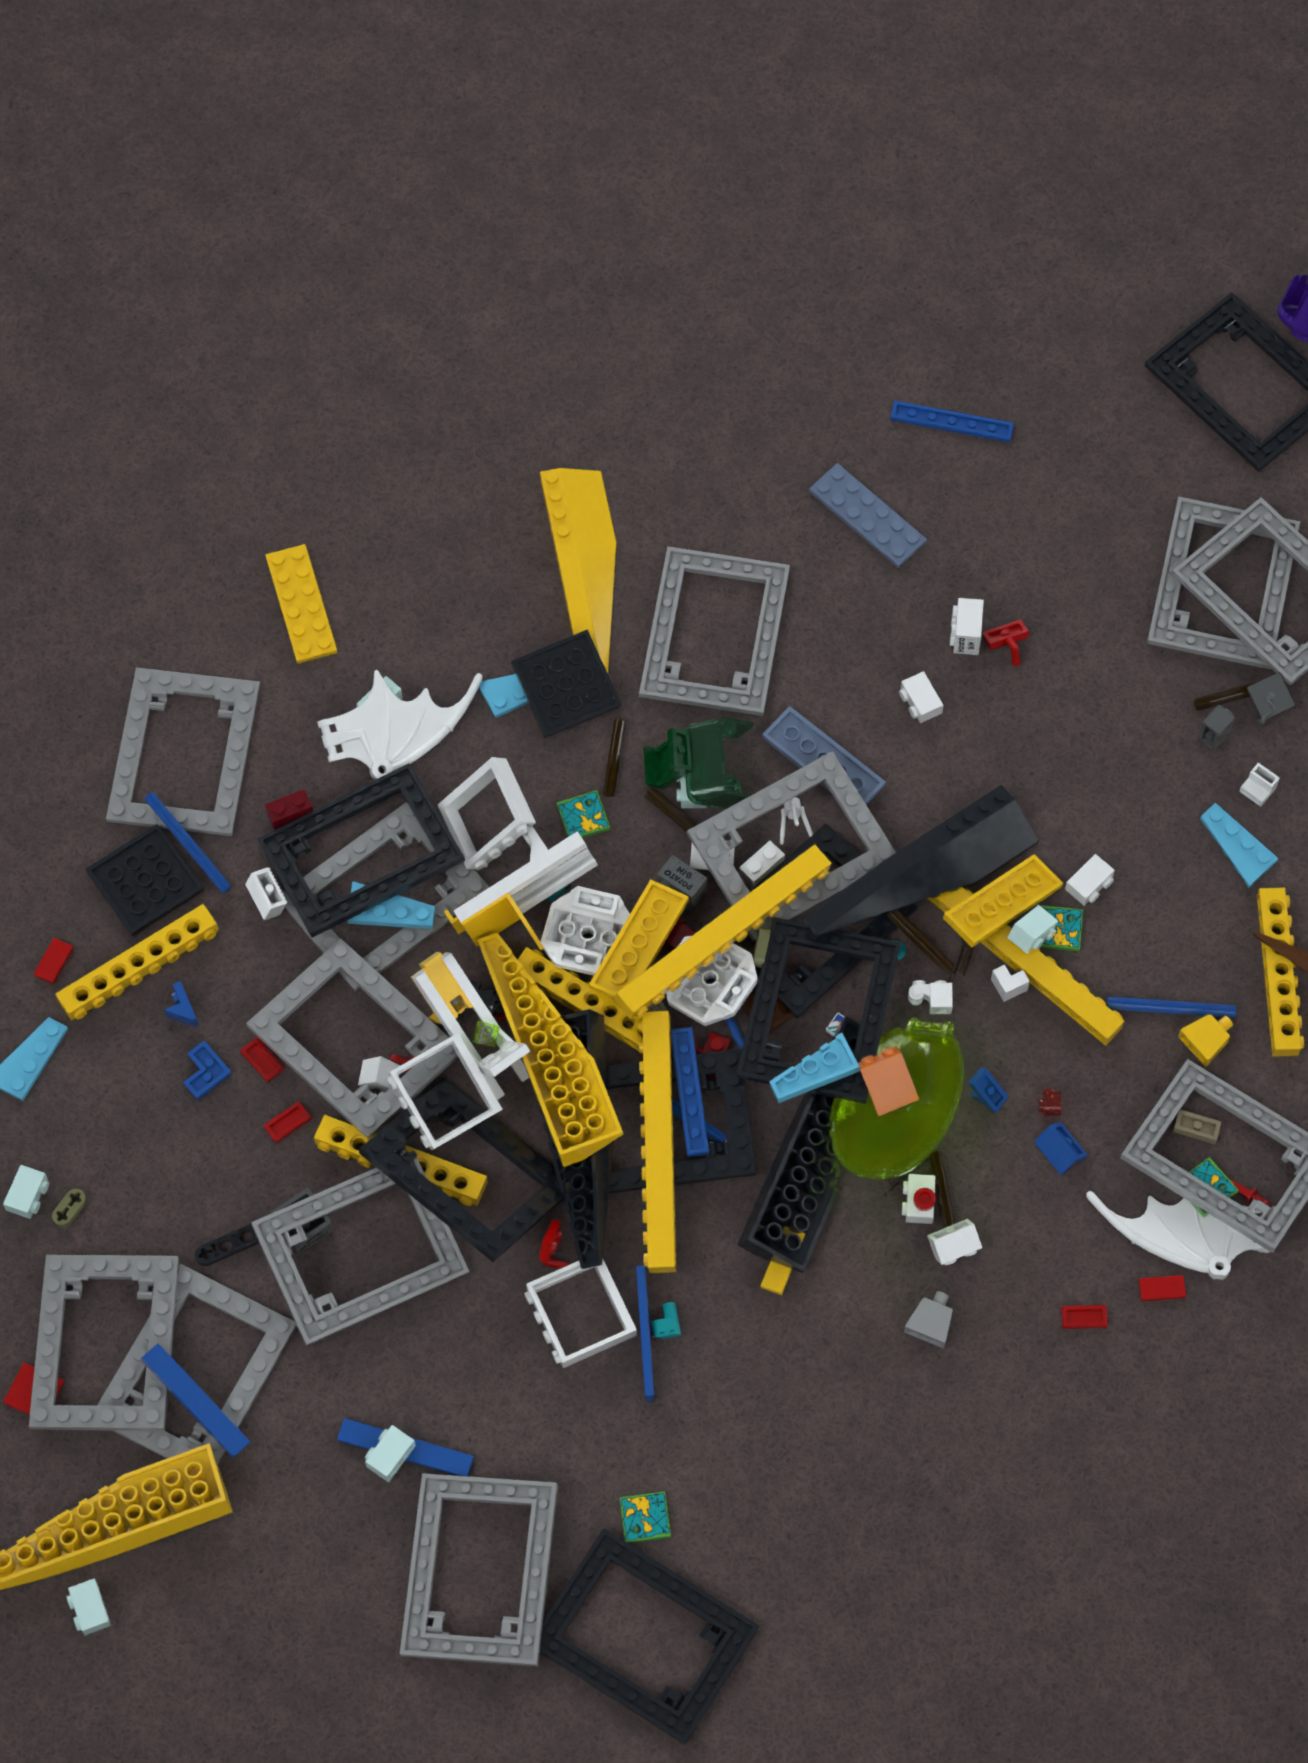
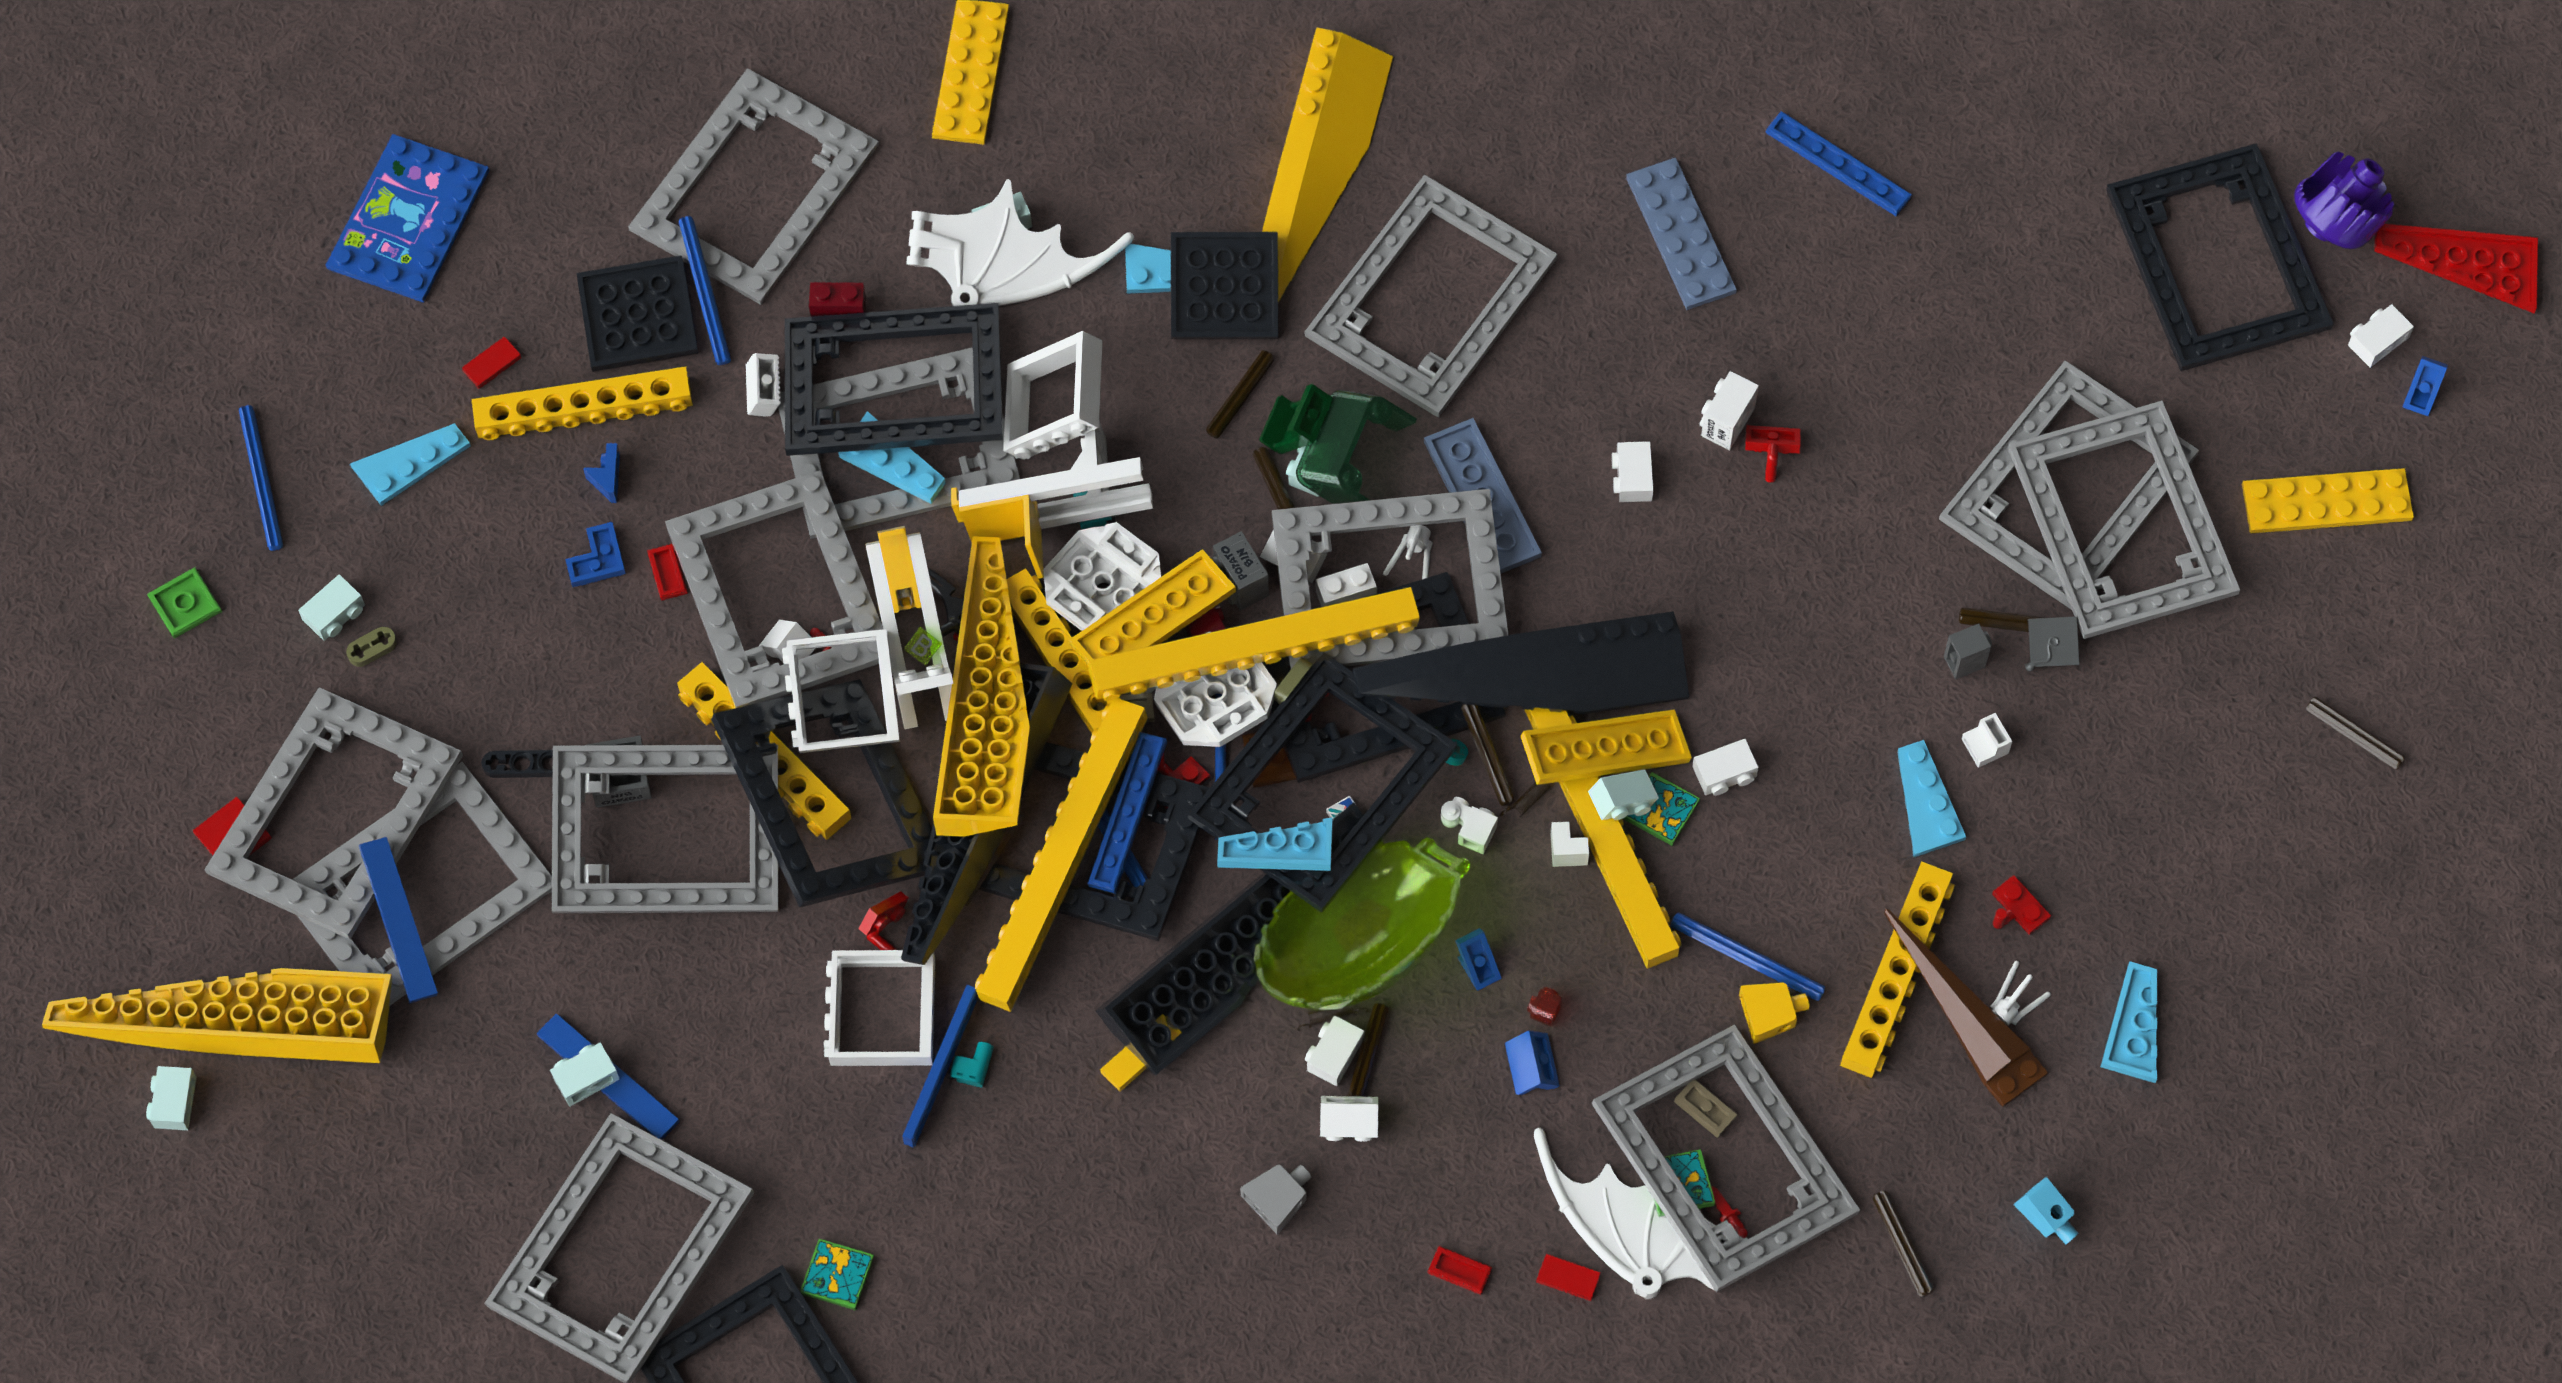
camera: 25 degrees right, 0 degrees up
(287, 1122) = (660, 654): red tile -> none
(583, 815) = (1170, 446): tile -> none
(888, 1080) = (1358, 896): orange panel -> none
(924, 1199) = (1336, 1052): red tile -> none

